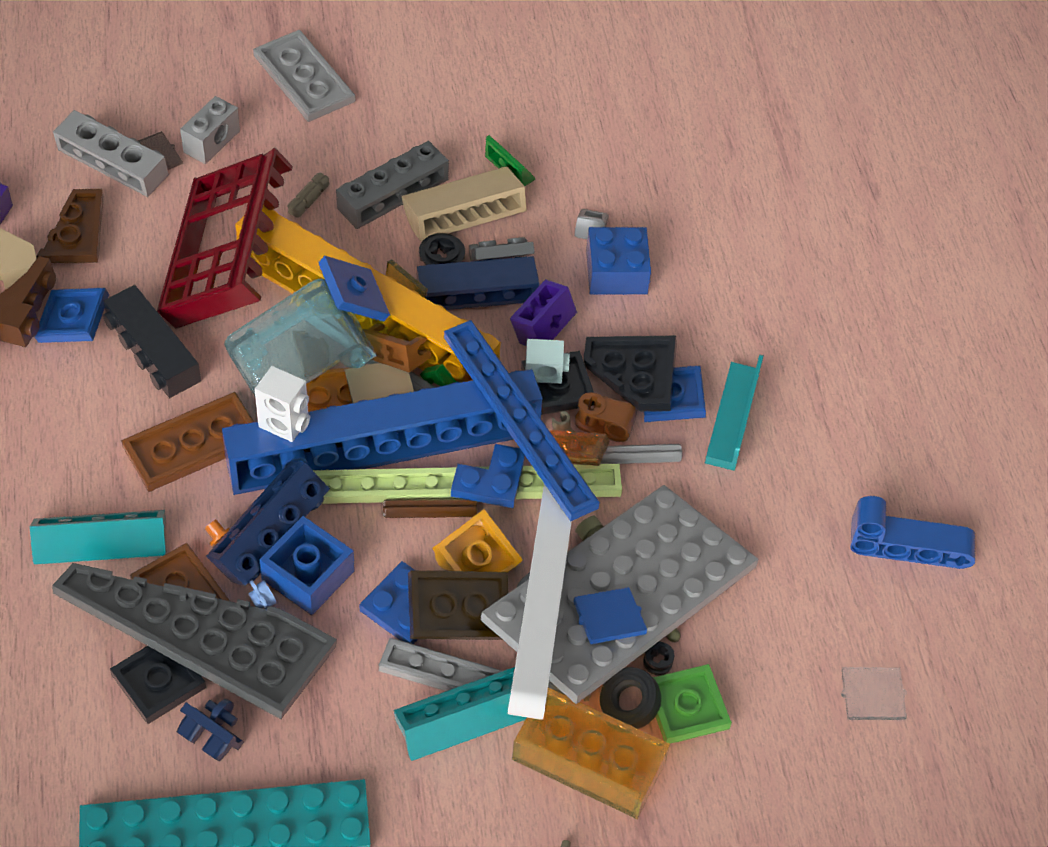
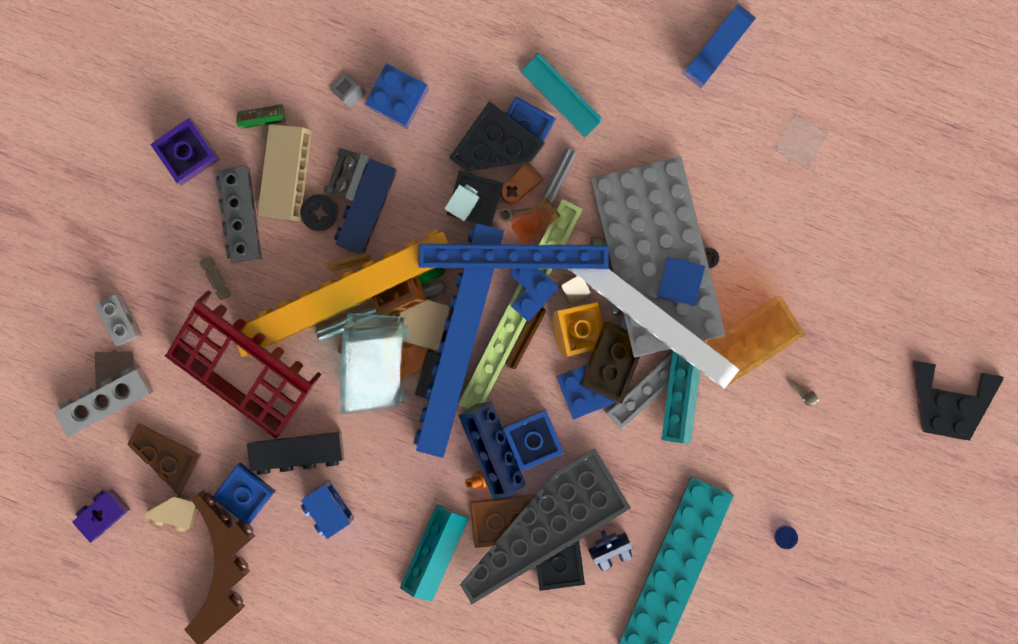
camera: 60 degrees left, 35 degrees up
(97, 391) = (327, 510): none -> blue brick
(184, 442) = (390, 461): dark orange tile -> none
(261, 595) = (536, 476): light blue plate -> none
(282, 404) = (432, 410): white brick -> none
(304, 75) = (90, 219): light grey tile -> none
(353, 288) = (356, 312): blue plate -> none
(428, 110) = (185, 151): none -> dark purple brick
(522, 530) = (575, 290): none -> slope
(544, 313) = (419, 178): dark purple brick -> none
(627, 678) = (737, 283): black tyre -> none
(690, 705) = (749, 261): bright green plate -> none

